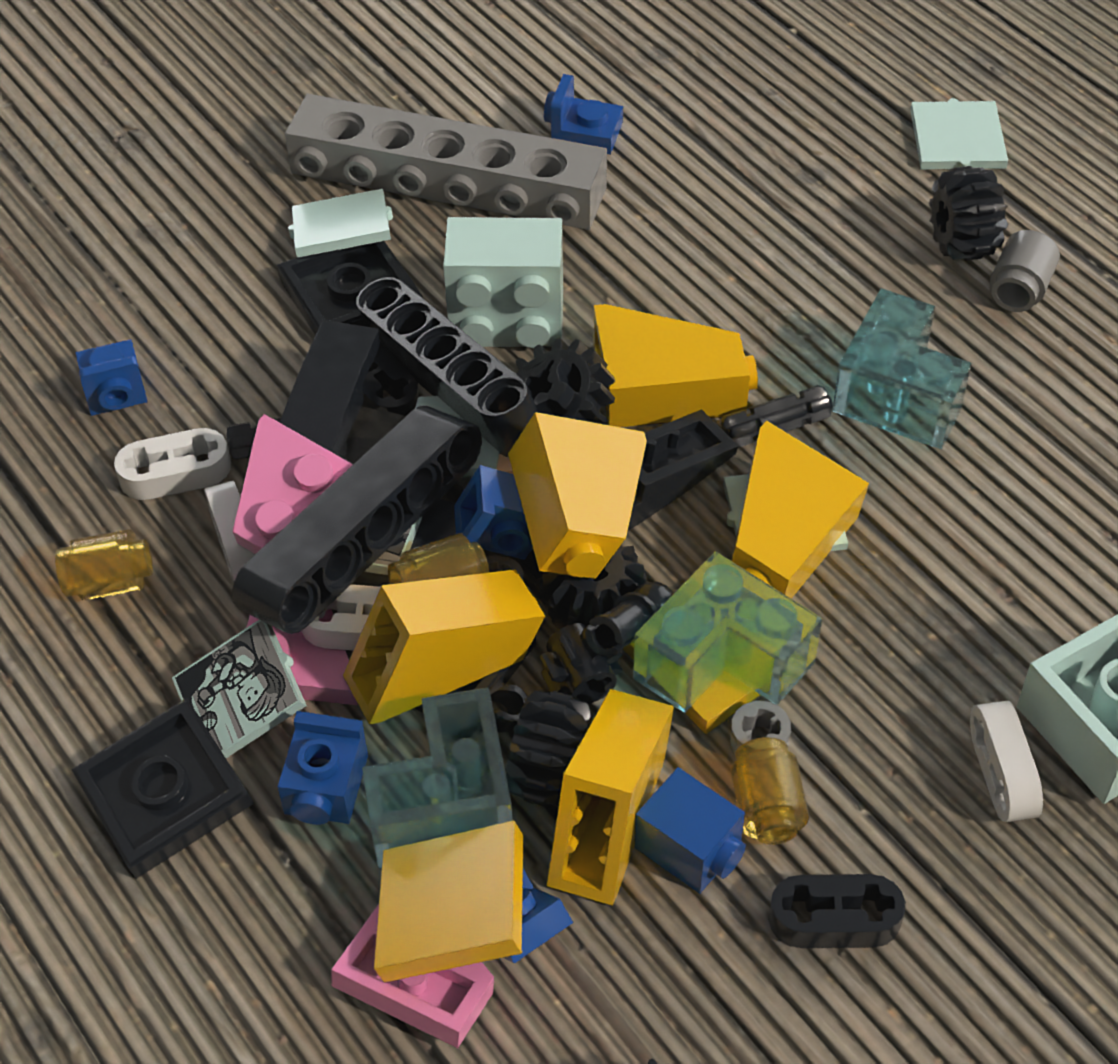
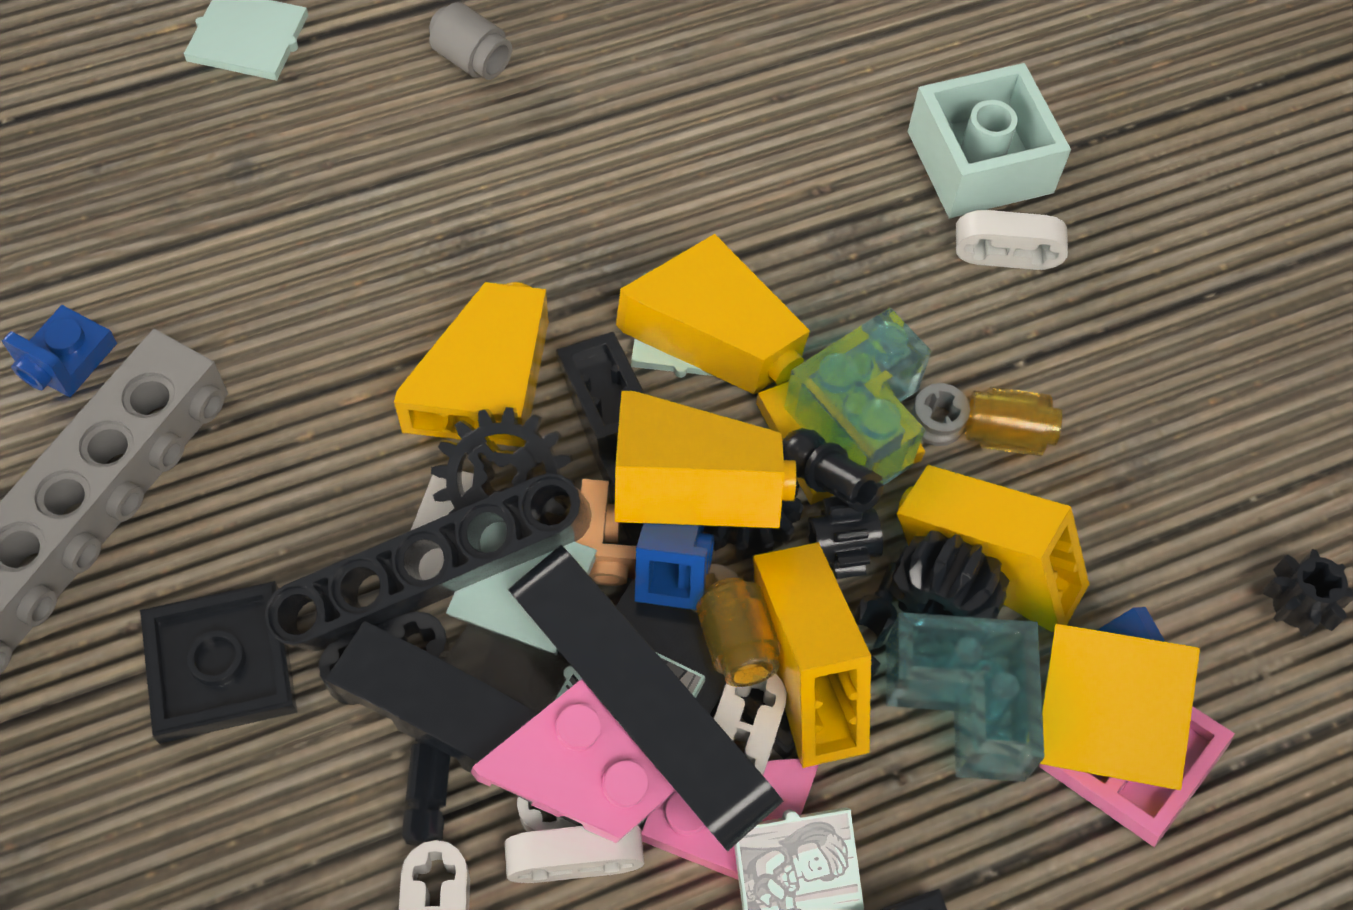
camera: 80 degrees left, 10 degrees up
(323, 768) = (896, 823): blue brick -> none
(340, 223) = (113, 648): light aqua piece -> none
(505, 279) = (324, 477): light aqua brick -> none
(690, 831) = (1055, 476): blue brick -> none
(782, 412) = (572, 292): black axle -> none
(836, 911) = (1140, 411): black beam -> none
(895, 379) = (569, 183): clear light blue brick -> none
(968, 213) = (390, 52): black gear -> none

